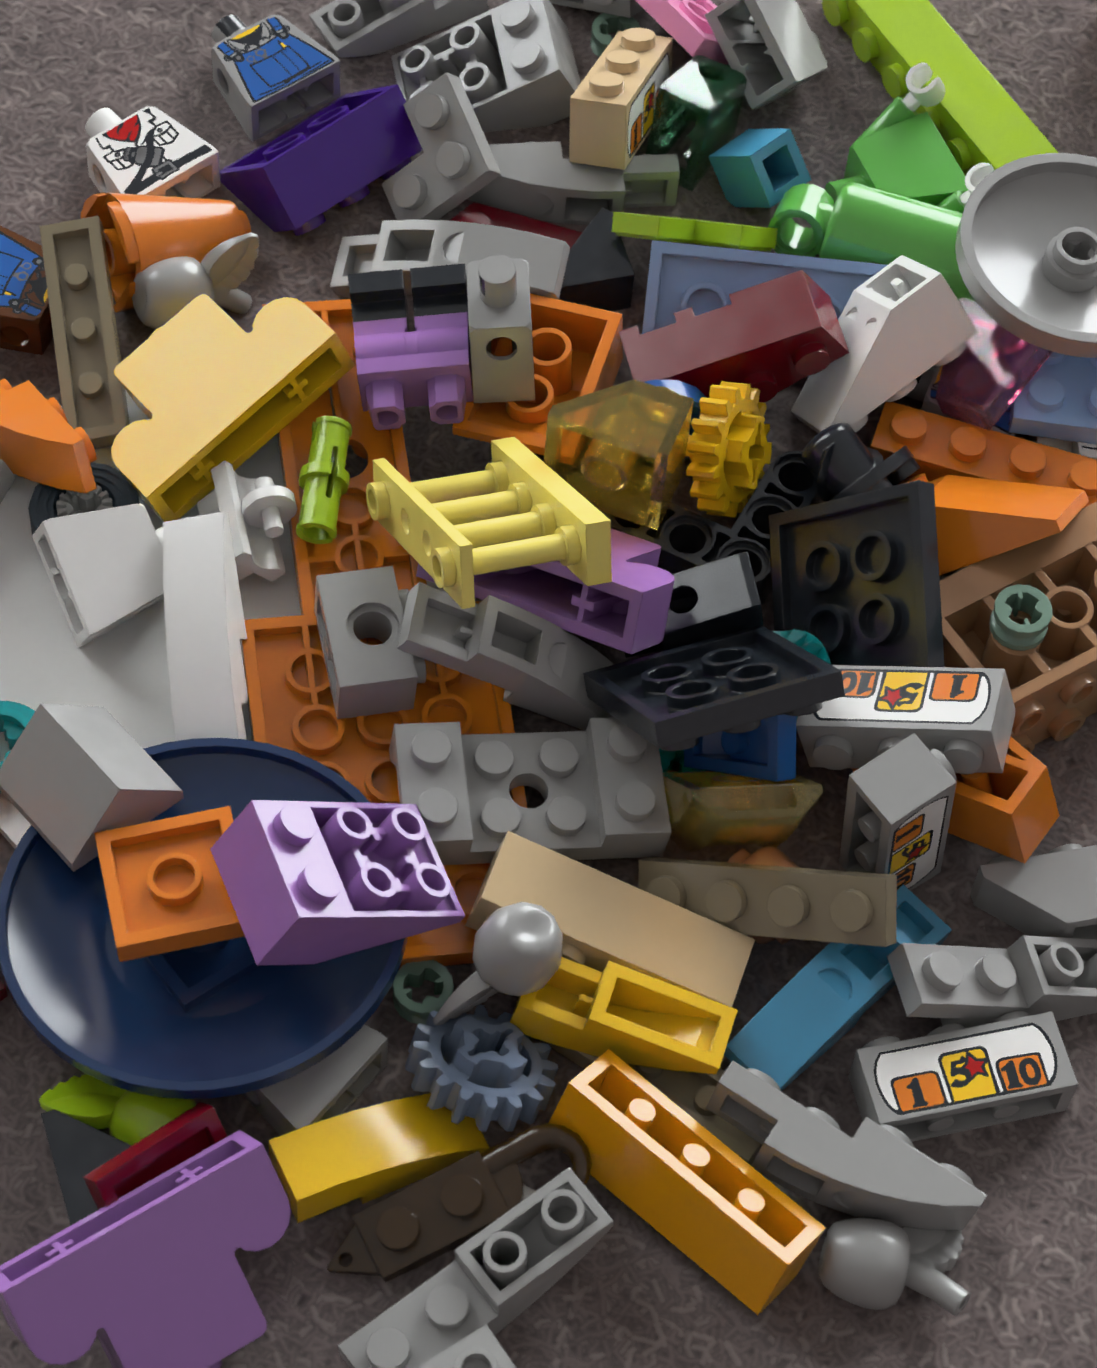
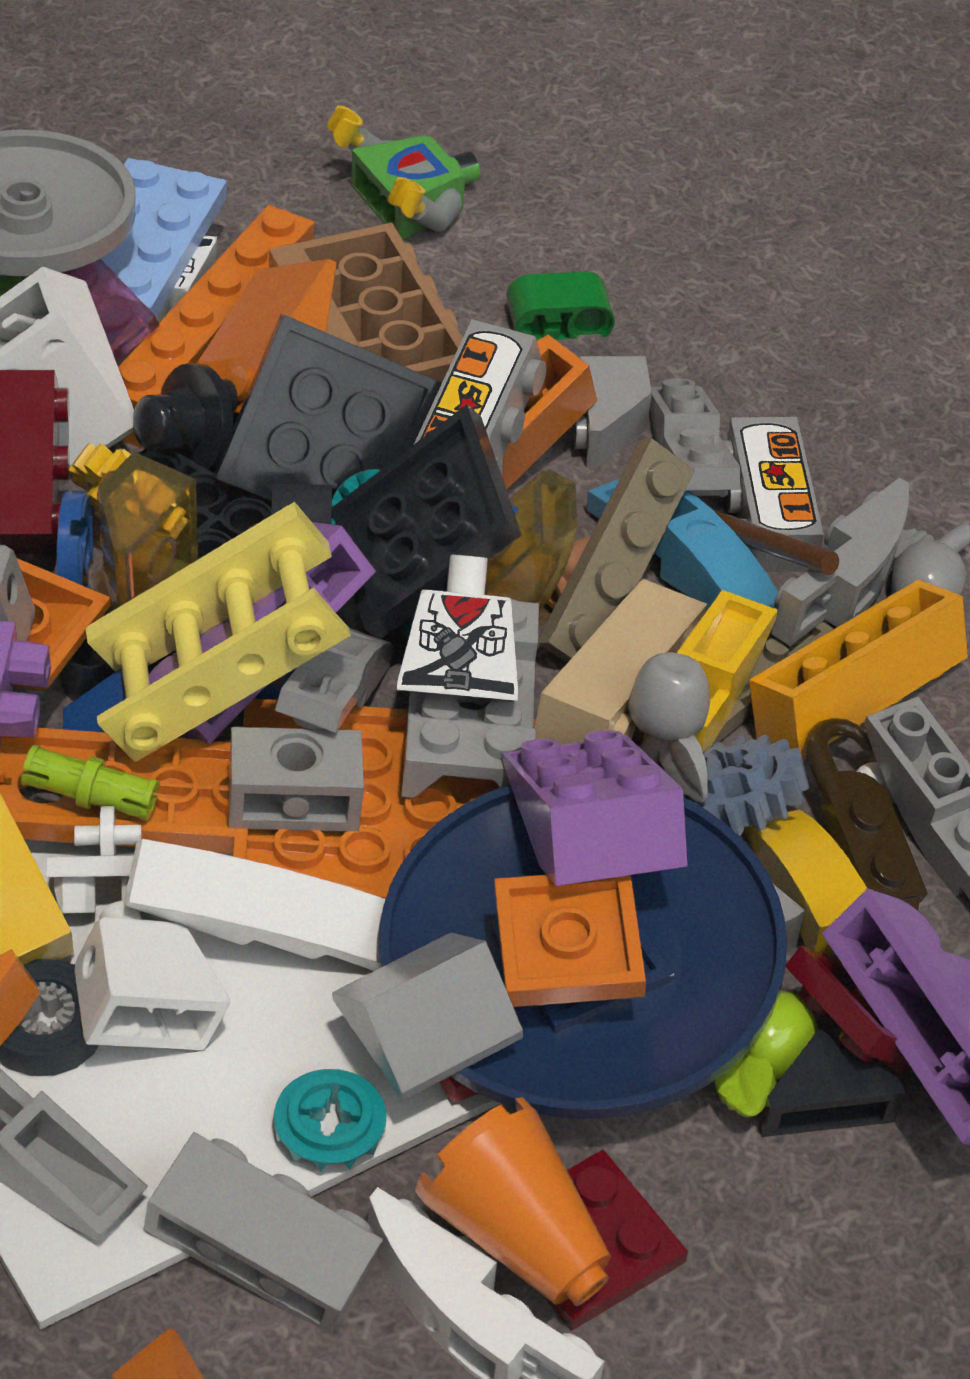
camera: 80 degrees left, 10 degrees down
(548, 745) = (462, 638): none -> torso
(825, 1056) = (783, 546): none -> reddish brown bar
(899, 813) = (568, 433): light grey brick -> none
(1024, 599) = (395, 321): sand green bush -> none

